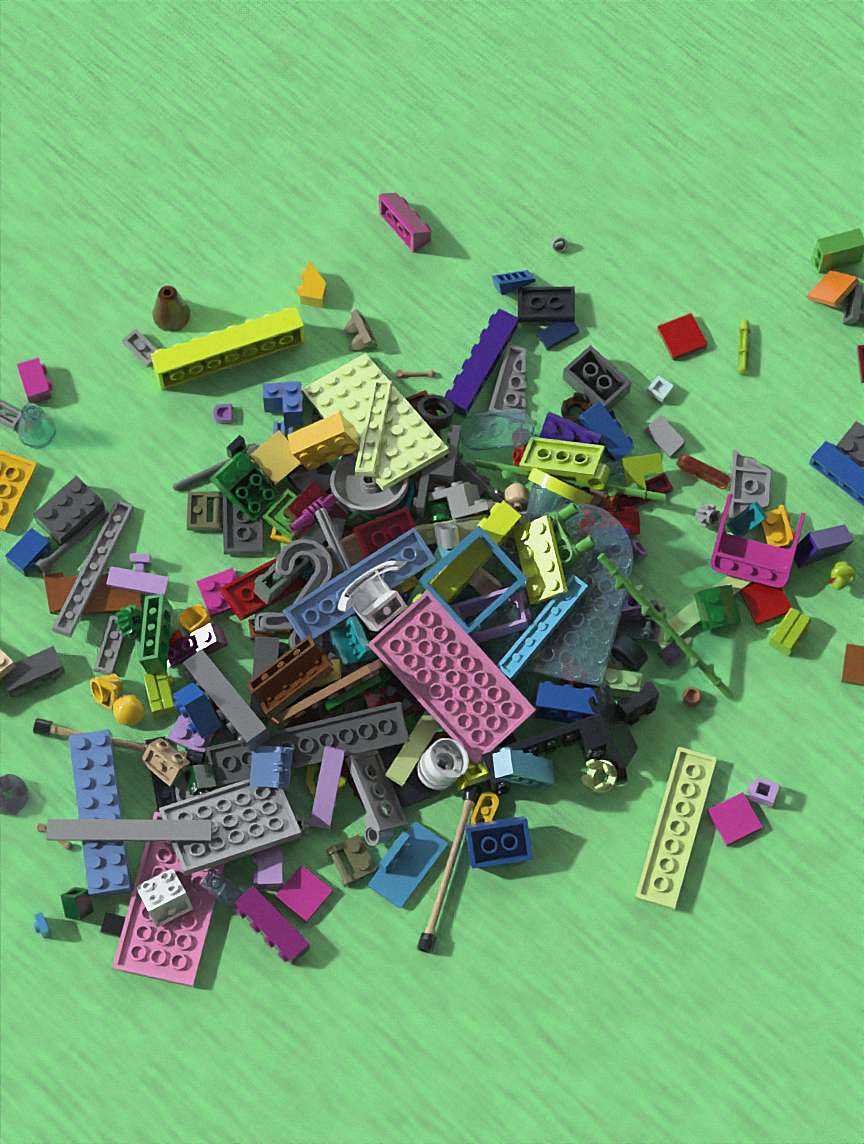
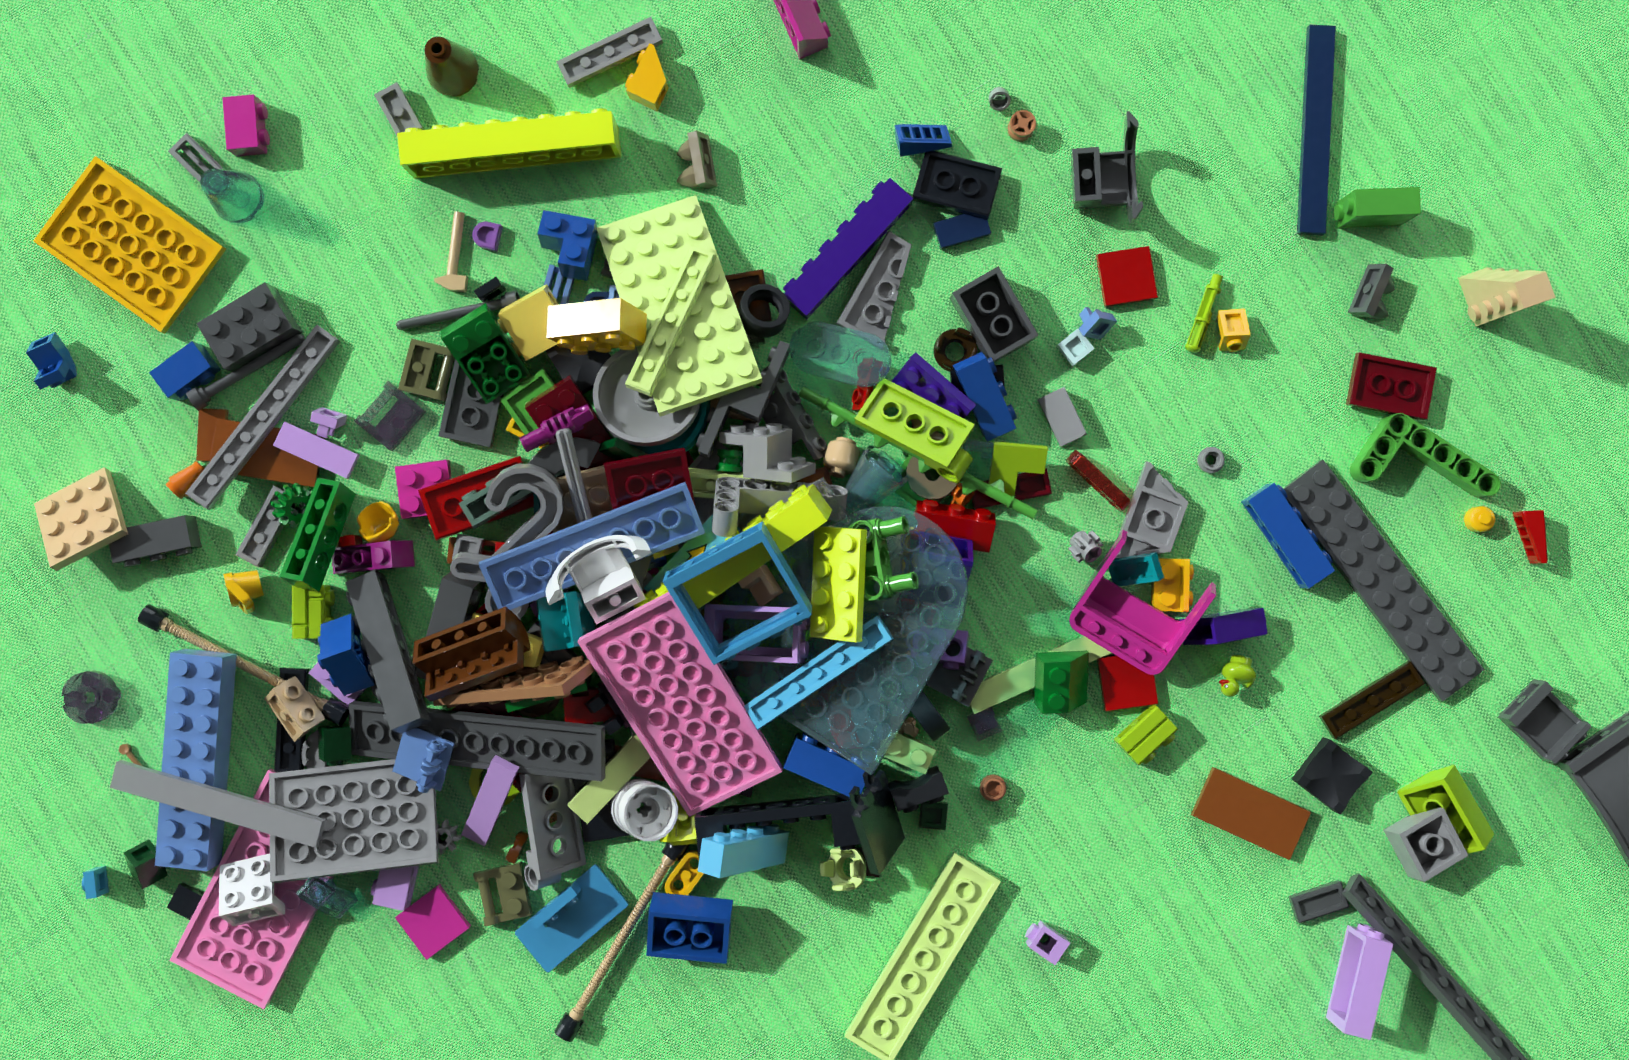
camera: 15 degrees right, 20 degrees up
(44, 627) = (182, 481): none -> orange cone
(128, 710) = (264, 627): yellow hair -> none
(189, 552) = (396, 422): none -> plate
(206, 449) = (451, 280): none -> tan piece
(271, 925) = (381, 957): magenta brick -> none
(279, 276) = (609, 52): none -> light grey plate
(353, 824) = (516, 851): none -> reddish brown tile
(399, 373) = (735, 236): medium nougat hinge -> none
(560, 487) = (888, 483): neon yellow piece -> none
(579, 252) = (1024, 120): none -> nougat wheel
(638, 550) = (981, 569): medium lavender tile -> none
(649, 275) = (1107, 177): none -> dark grey piece
(654, 727) = (933, 815): none -> dark green tile
(660, 618) = (977, 698): bright green plant -> none
(670, 369) = (1096, 324): none -> medium blue tile
(734, 819) = (1000, 963): dark pink tile -> none
(767, 352) = (1233, 330): none -> yellow bracket
(778, 435) = (1218, 460): none -> light grey plate
(783, 215) = (1316, 130): none -> dark blue tile
(833, 288) = (1352, 261): orange tile -> none

